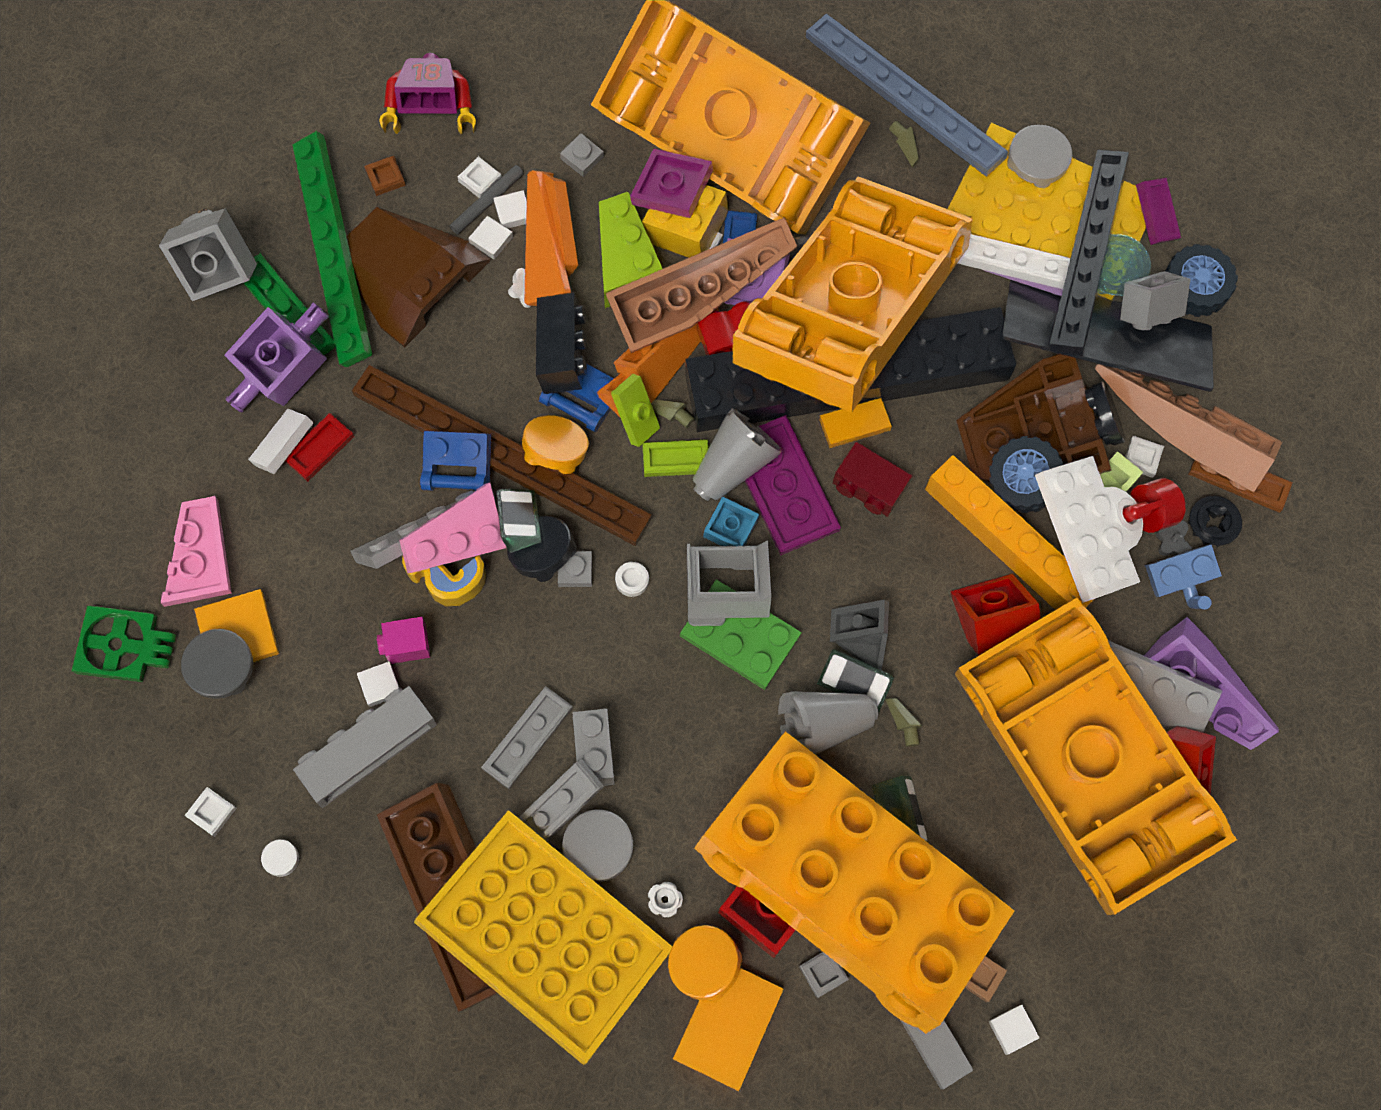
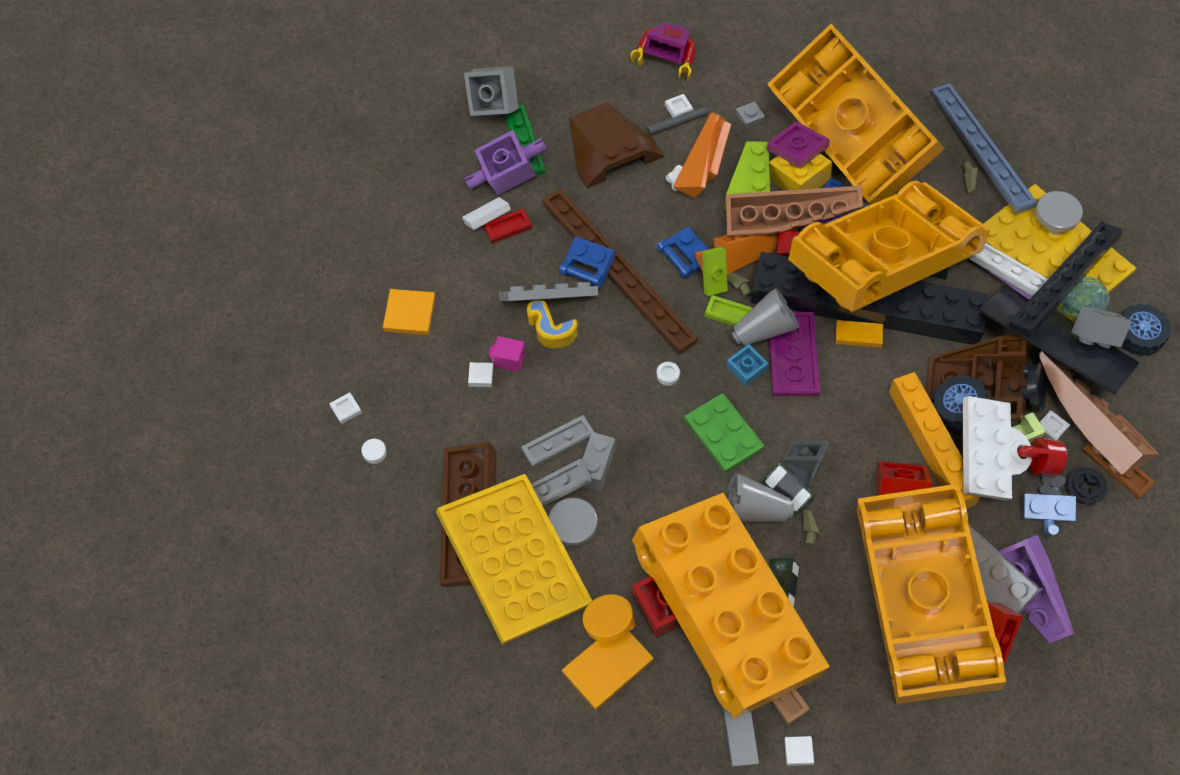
camera: 30 degrees right, 10 degrees down
(146, 649) = (350, 304): green piece -> none
(199, 555) = (407, 261): bright pink wing -> none
(217, 664) = (388, 323): dark grey tile -> none
(332, 250) = (567, 117): green plate -> none
(364, 747) = (455, 405): light grey brick -> none
(384, 175) = (620, 86): dark orange tile -> none
(456, 534) = (567, 300): bright pink wing -> none
(490, 237) = (670, 143): white tile -> none
(511, 209) = (690, 131): white tile -> none
(518, 518) = (610, 308): slope -> none
(548, 556) = (617, 331): black tile -> none
(554, 443) = (654, 273): light orange tile -> none
(560, 343) = (684, 215): black brick -> none
(576, 571) = (634, 353): light grey plate -> none
(674, 899) = (604, 566): white plate -> none
(714, 607) = (712, 405): light grey piece -> none
(823, 974) = (684, 661): light grey tile -> none
(871, 480) = (853, 370): dark red brick -> none
(1158, 211) = (1130, 276): magenta tile -> none

